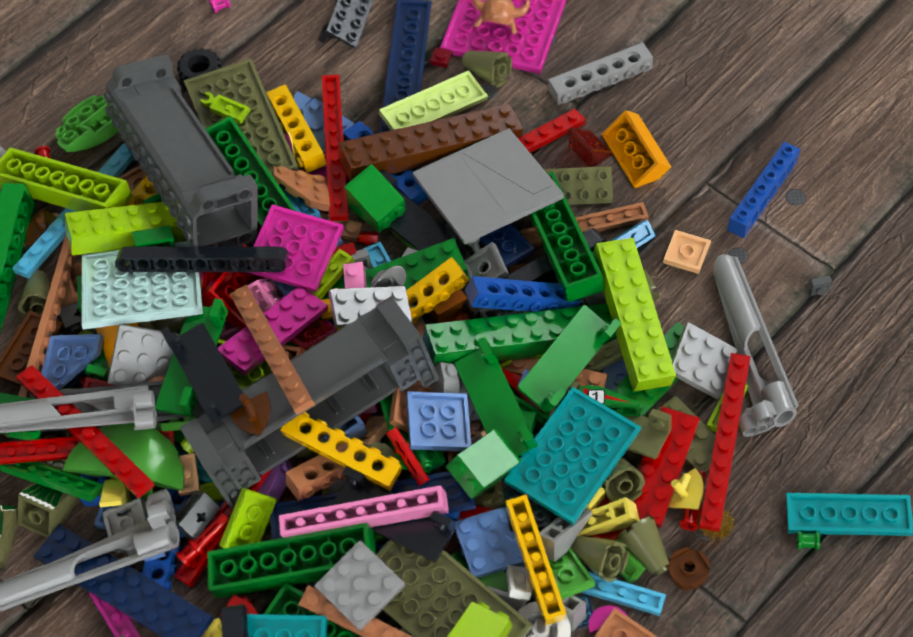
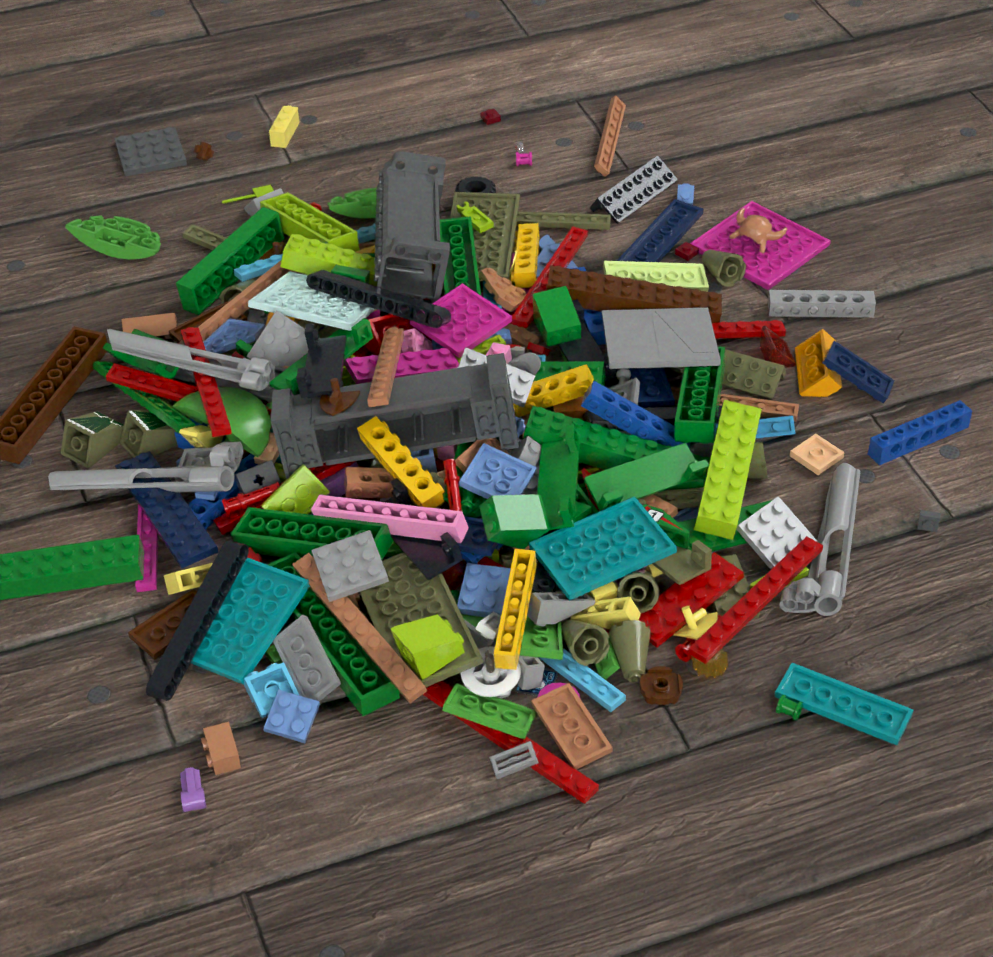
camera: 25 degrees right, 15 degrees down
(305, 66) = (565, 220): none -> olive plate
(679, 145) = (858, 372): none -> dark blue plate

